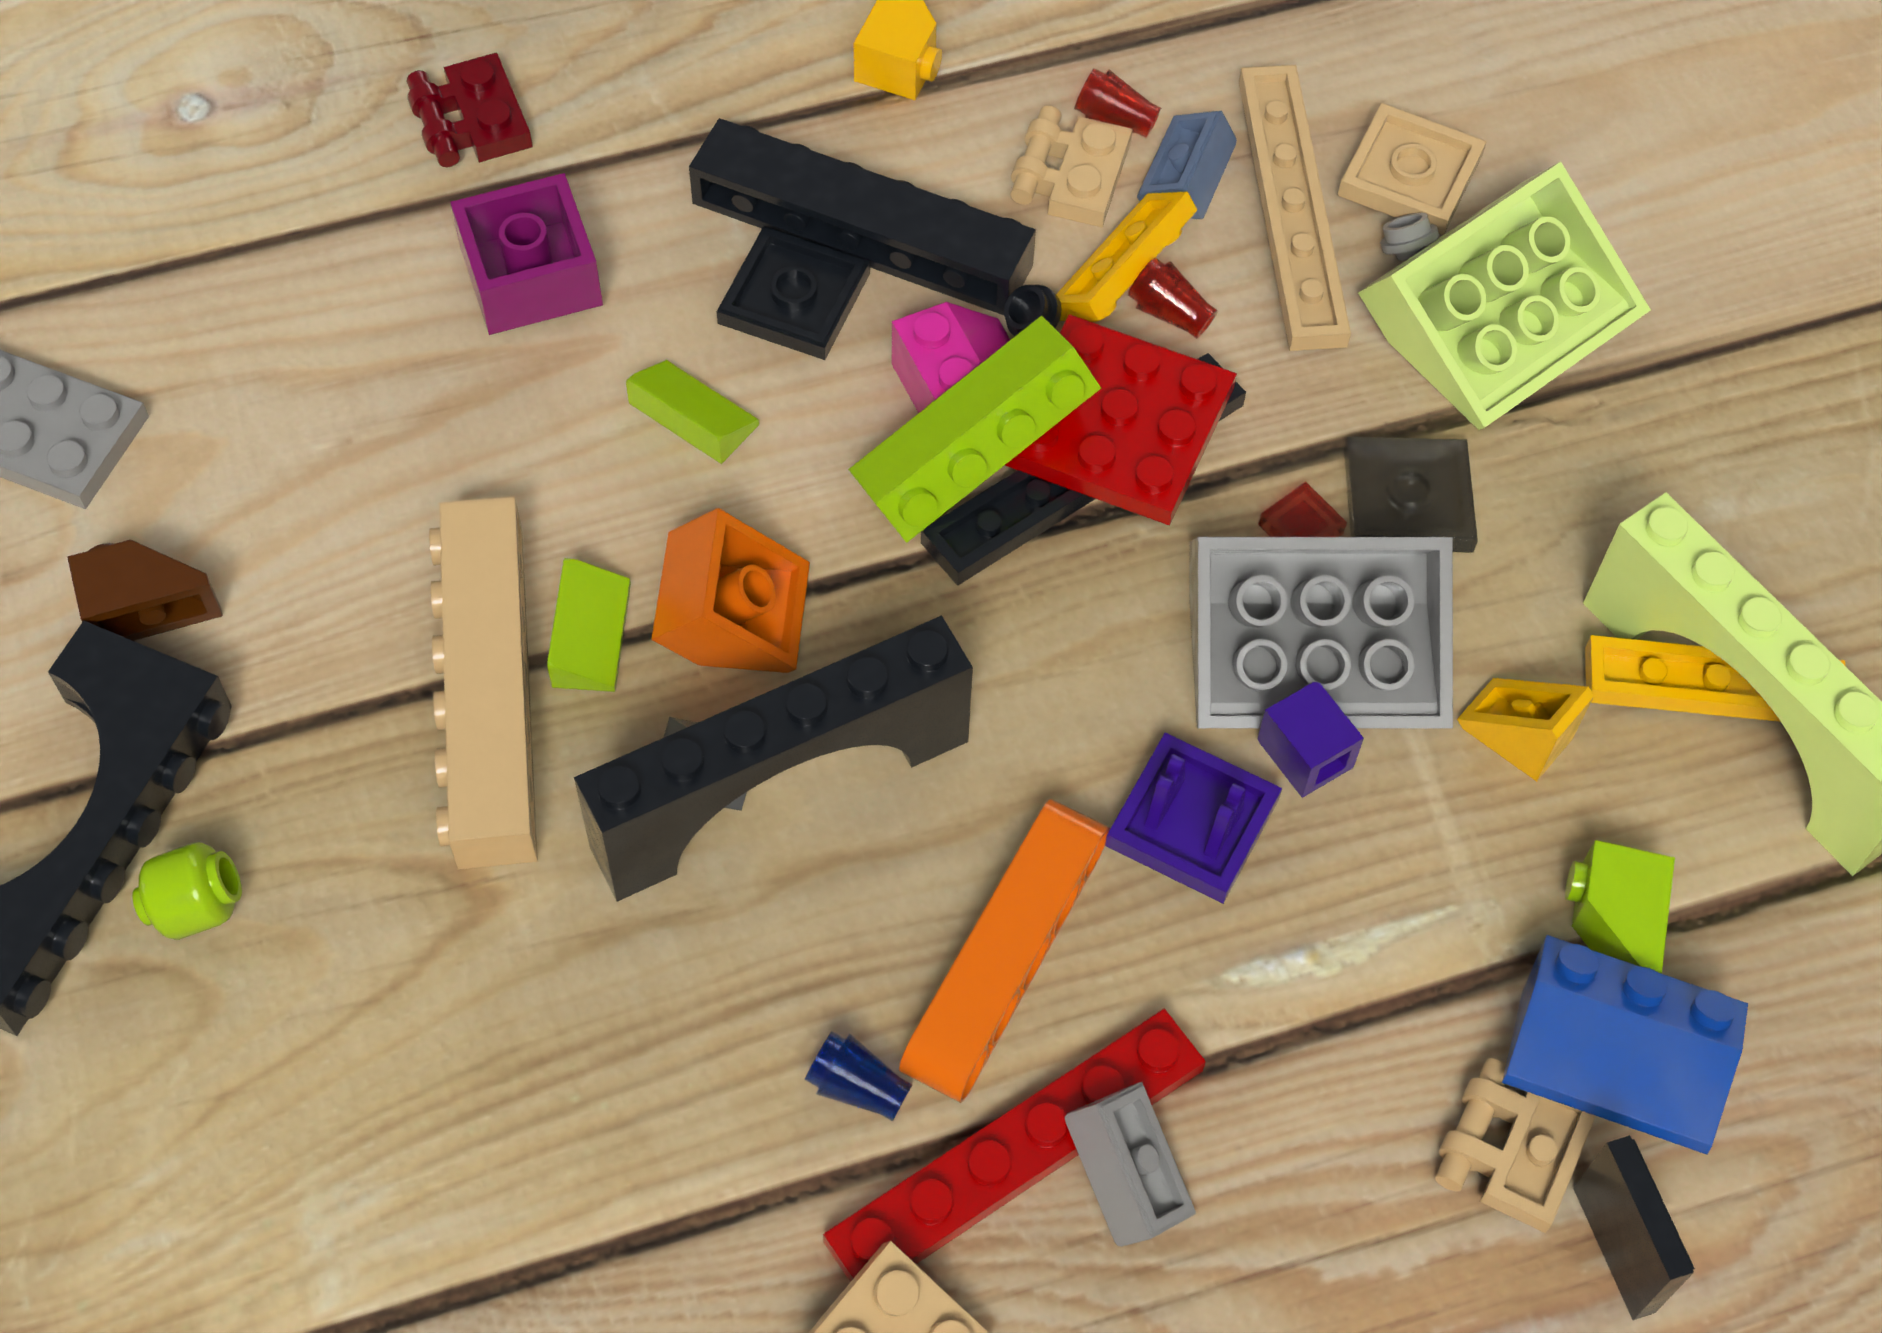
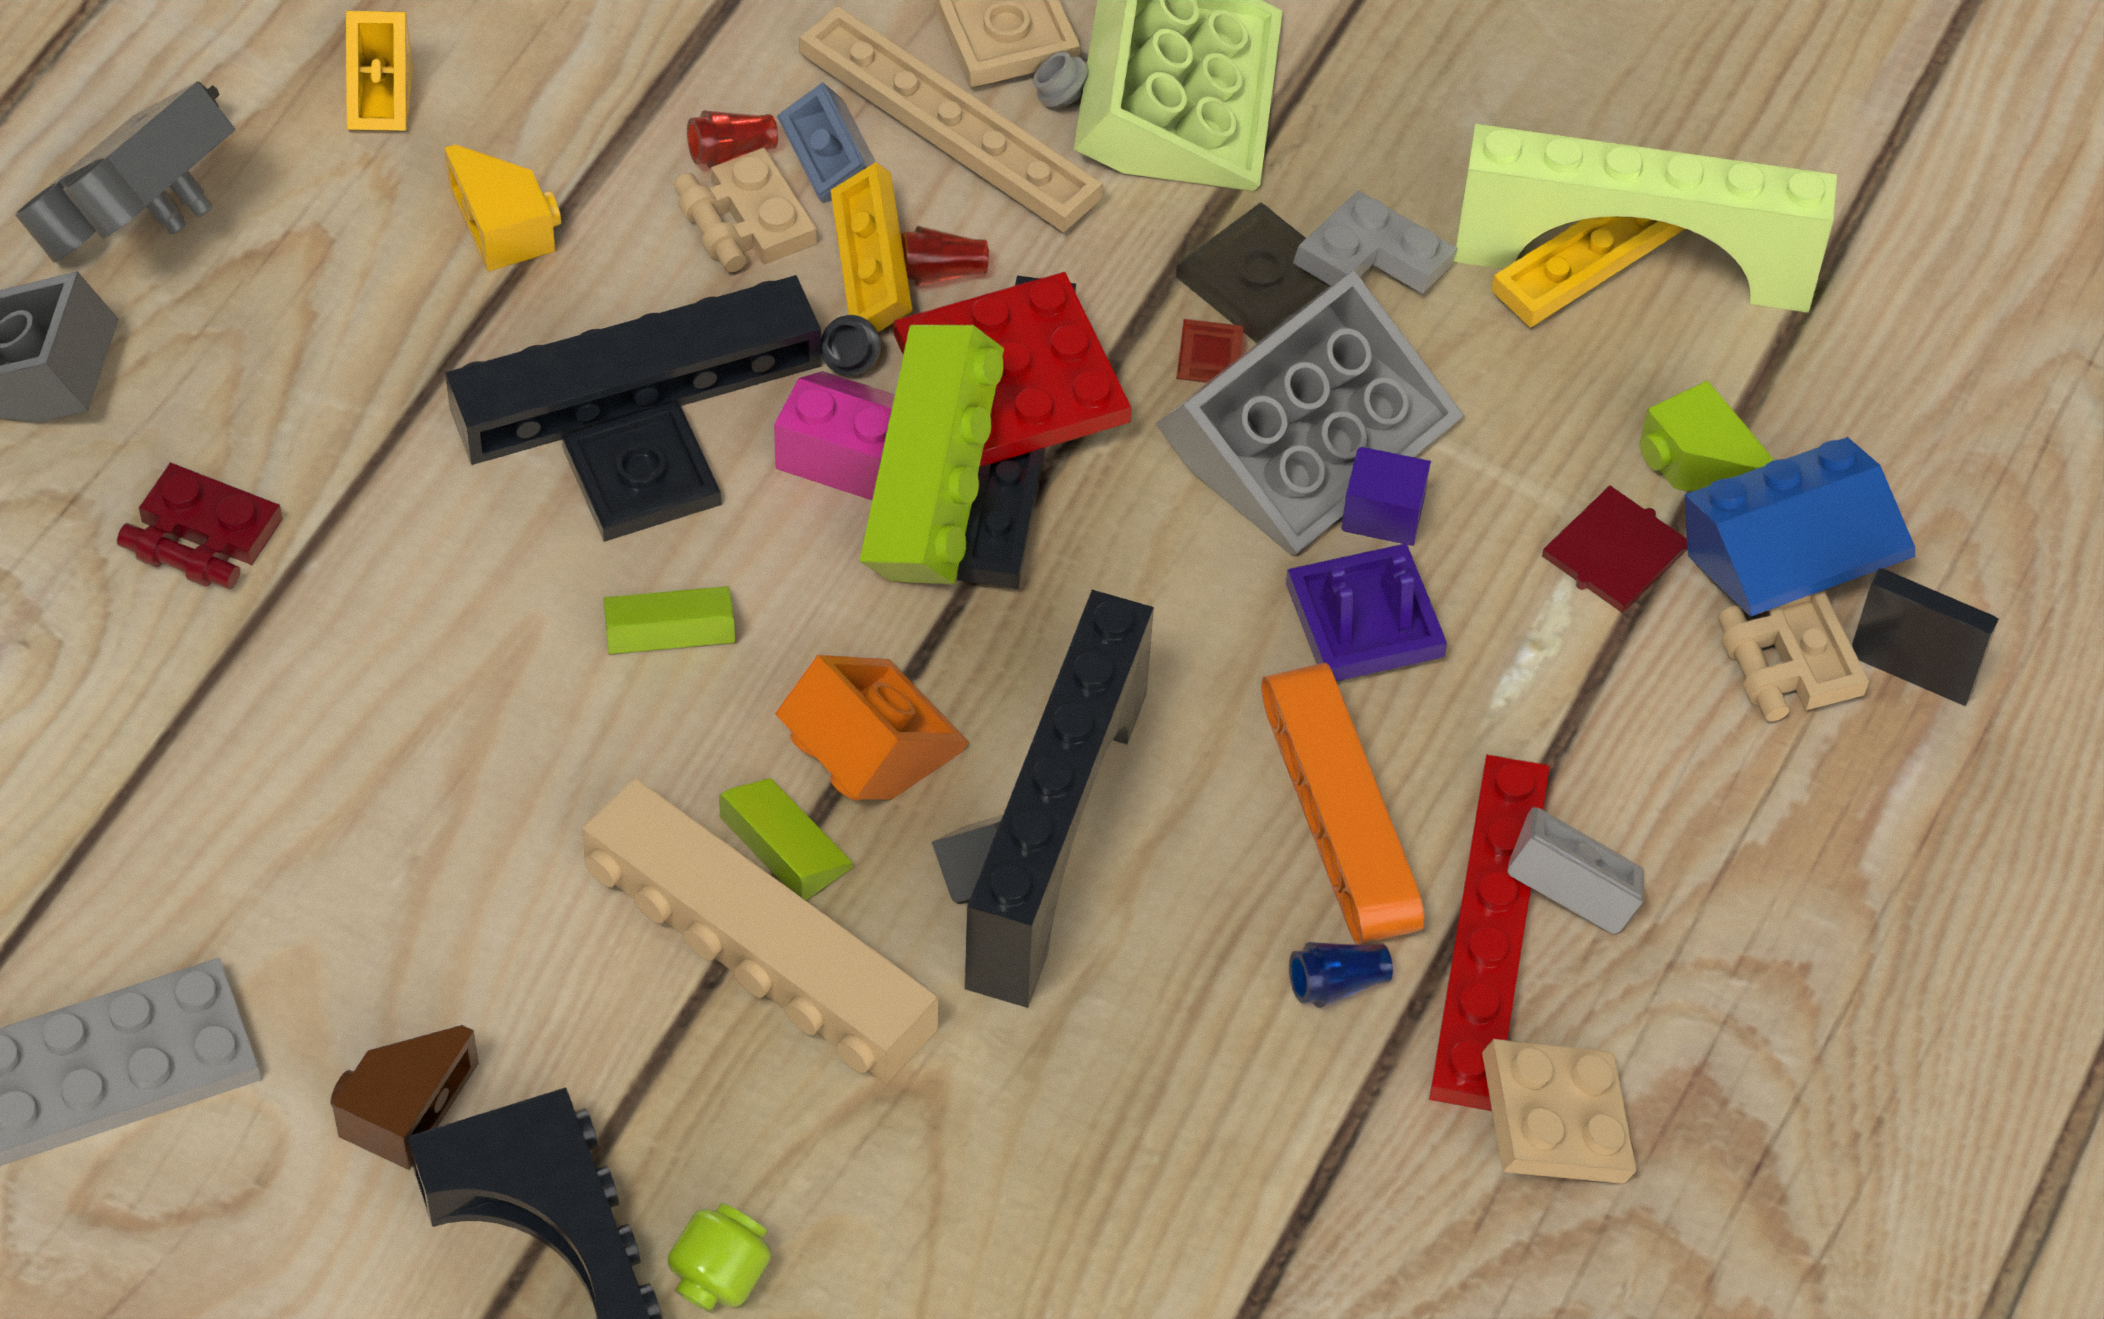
camera: 45 degrees left, 5 degrees down
(527, 253) = (410, 595): magenta brick -> none
(1464, 934) = (1615, 549): none -> dark red piece
(1526, 528) = (1371, 234): none -> light grey plate
(1526, 720) = (1512, 368): yellow slope -> none

